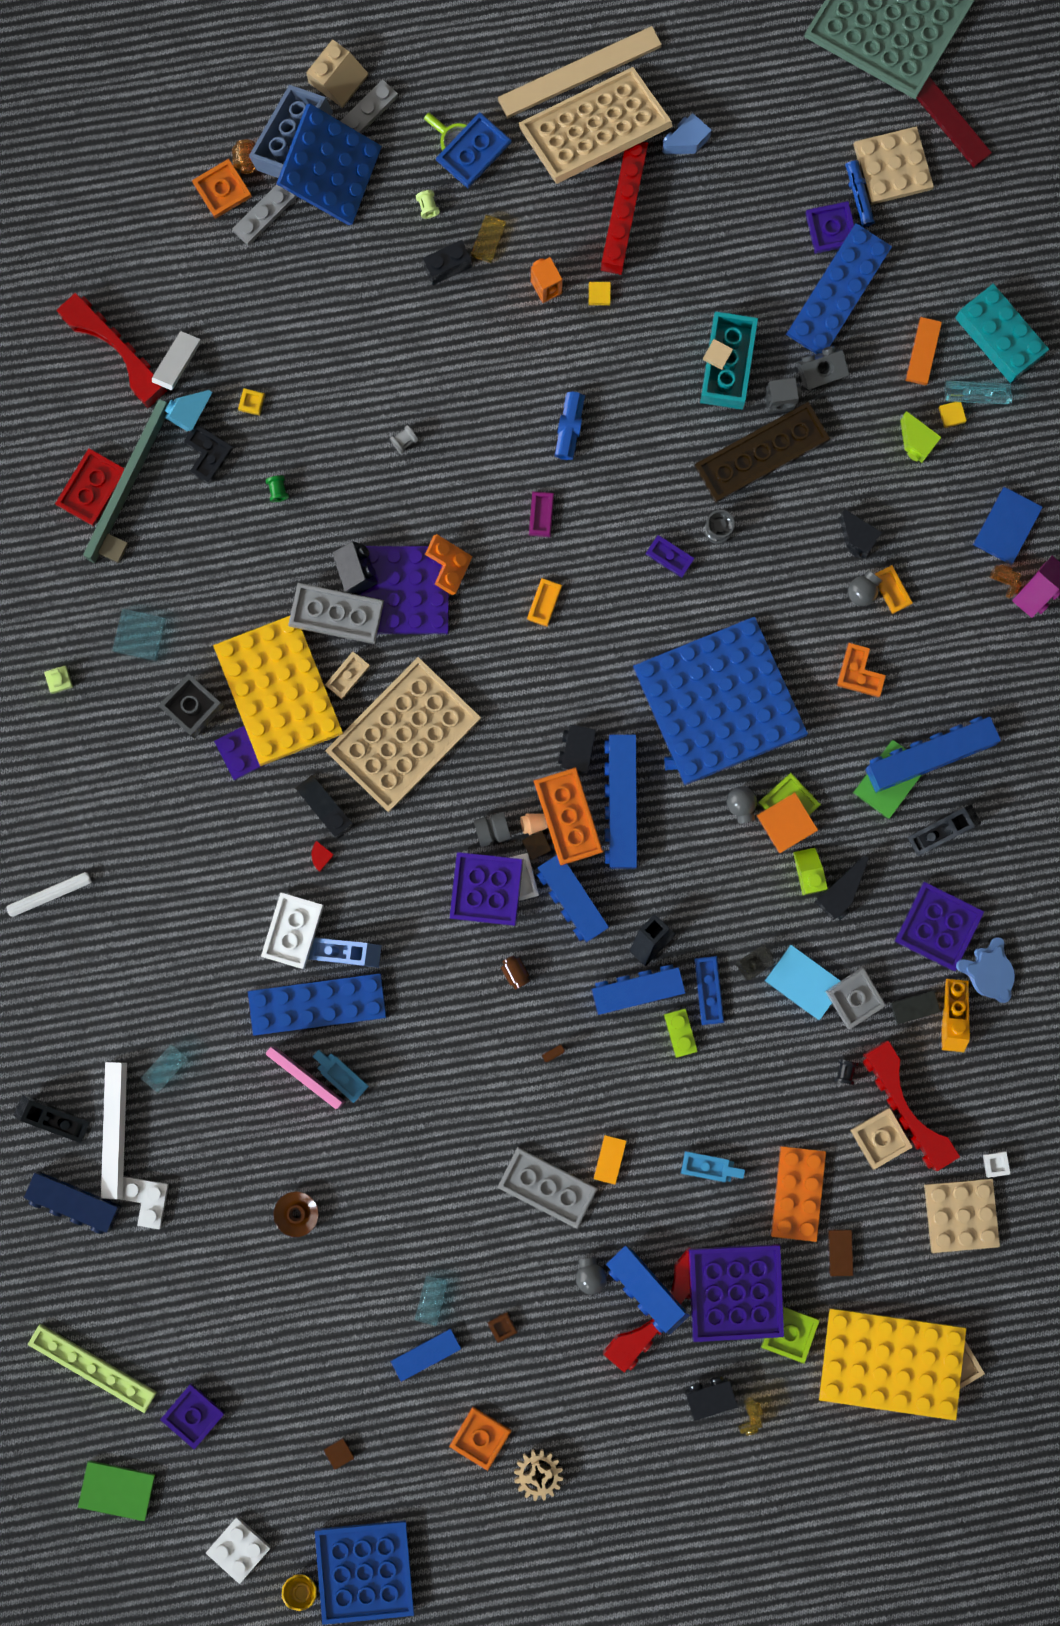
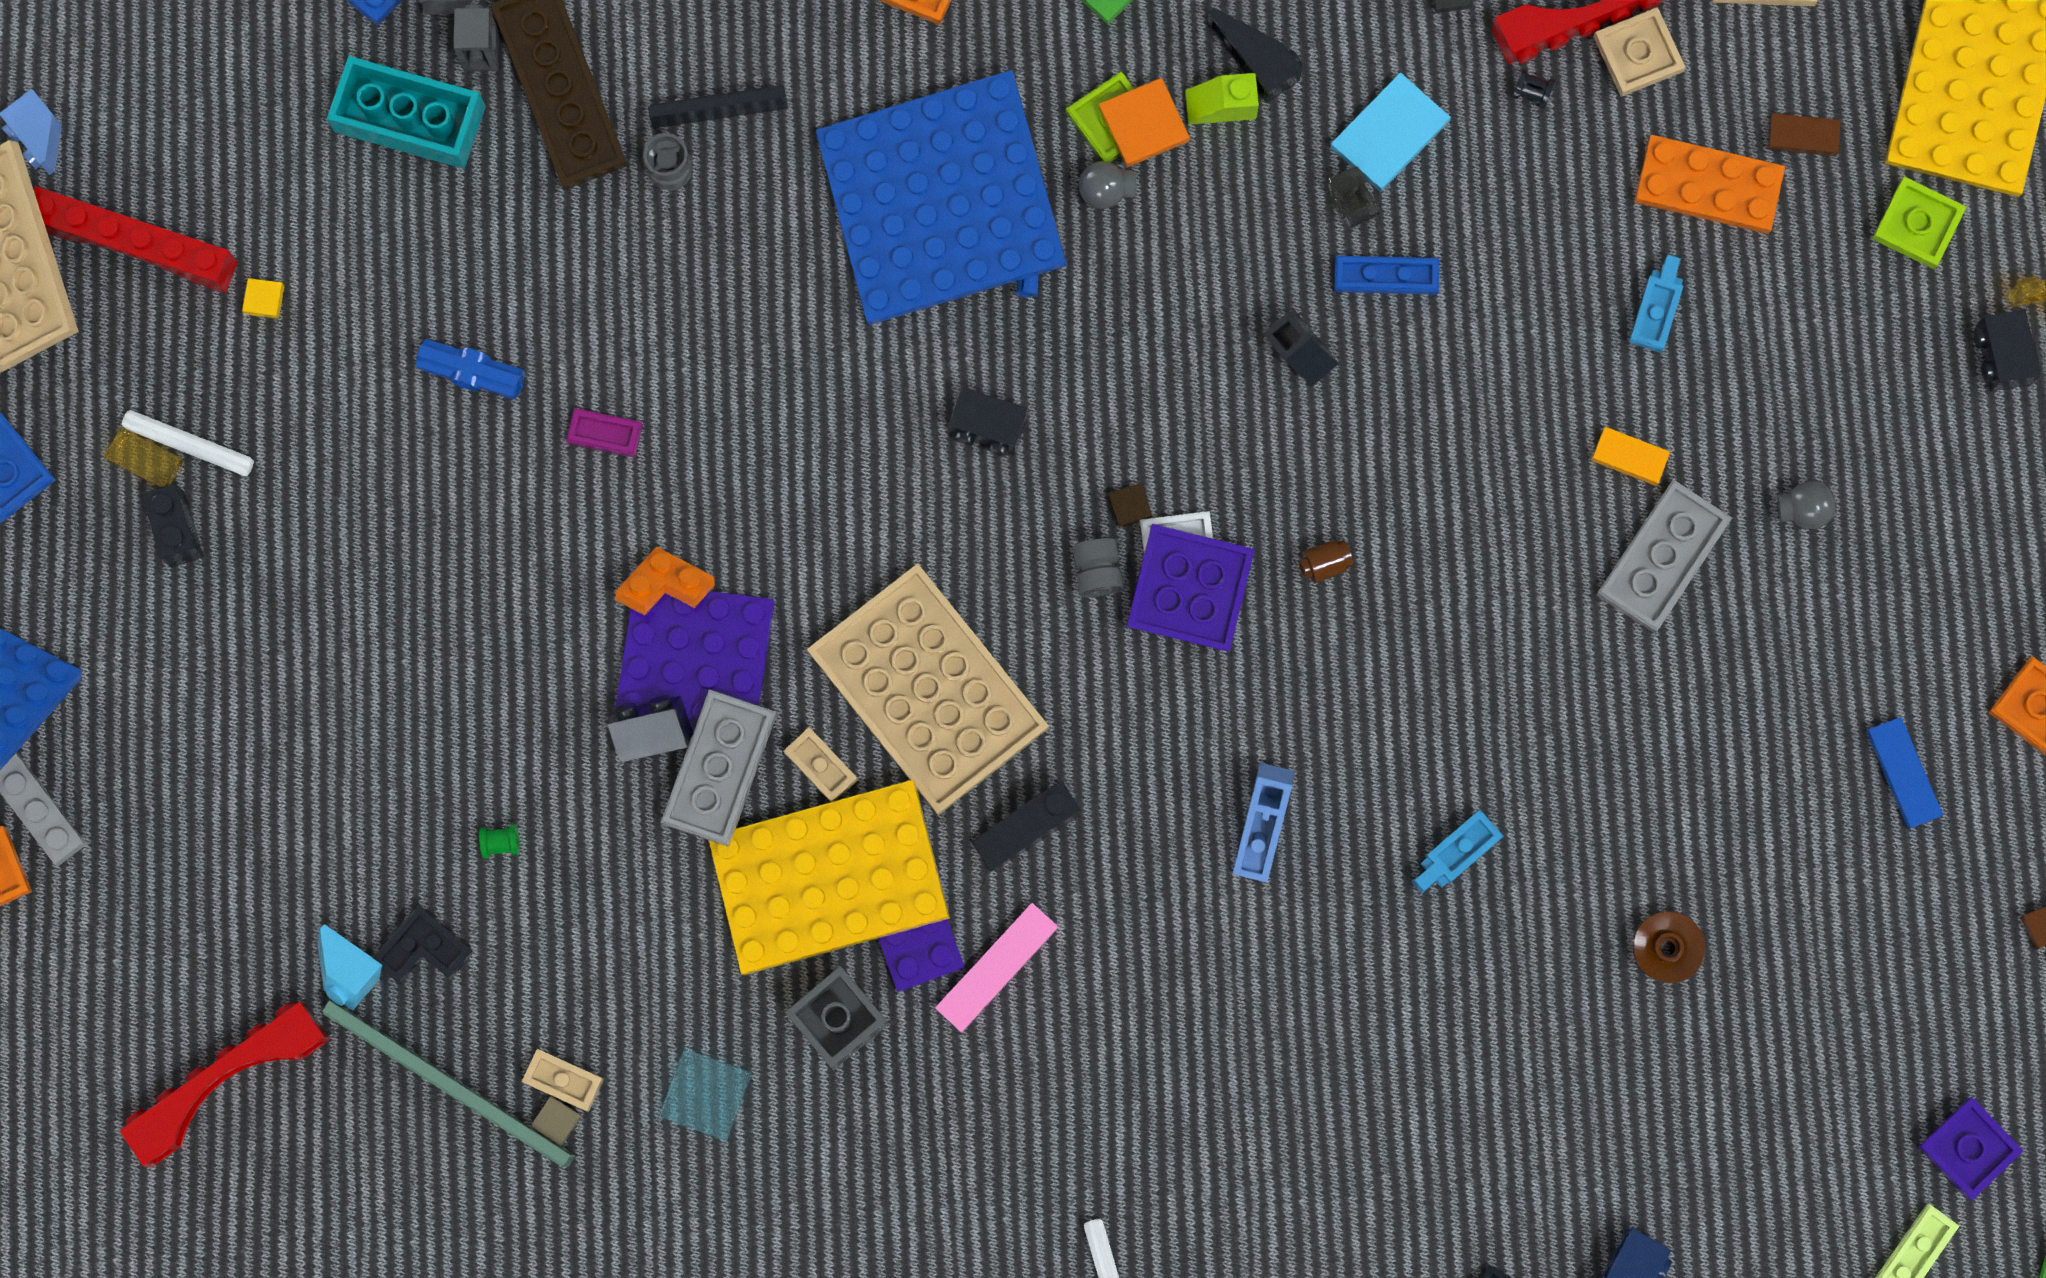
camera: 80 degrees left, 5 degrees down
(58, 679) = (760, 1236): yellowish green tile -> none
(90, 487) = (449, 1145): red plate -> none
(114, 1130) = (1507, 1224): white tile -> none
(137, 548) = (562, 1080): none -> tan plate
(152, 1198) = (1619, 1176): white plate -> none
(164, 1068) = (1416, 1131): clear light blue plate -> none
(176, 360) = (261, 978): white tile -> none
(236, 799) = (996, 967): none -> bright pink tile
(251, 401) = (348, 867): yellow tile -> none
(292, 930) = (1219, 900): white plate -> none
(305, 1077) = (1458, 902): bright pink tile -> none
(317, 1004) = (1340, 878): blue plate -> none
(320, 856) = (1104, 843): red tile -> none
(403, 439) = (450, 630): light grey bush -> none
(427, 204) = (70, 545): yellowish green bush -> none
(431, 1300) = (1821, 755): clear light blue plate -> none
(501, 263) = (187, 443): none -> white axle
(502, 1327) = (1872, 651): reddish brown tile -> none
(533, 823) = (1094, 501): light nougat cone -> none
(544, 602) = (746, 445): light orange tile -> none
(546, 279) = (228, 372): orange brick -> none
(553, 1053) = (1458, 518): reddish brown tile -> none
(568, 816) = (1094, 444): orange tile -> none
(573, 899) = (1220, 459): blue brick -> none
(622, 802) = (1078, 365): blue brick -> none
(627, 1346) = (1918, 462): red arch -> none
(639, 990) = (1376, 379): blue brick -> none
(647, 1290) = (1838, 418): blue brick -> none
(669, 556) = (702, 244): dark purple plate -> none
(680, 1033) = (1447, 325): lime plate -> none
(717, 354) = (397, 121): tan tile -> none
(736, 1293) = (1854, 287): dark purple plate -> none
(761, 553) = (718, 106): none -> black tile
(855, 998) = (1423, 60): light grey tile -> none

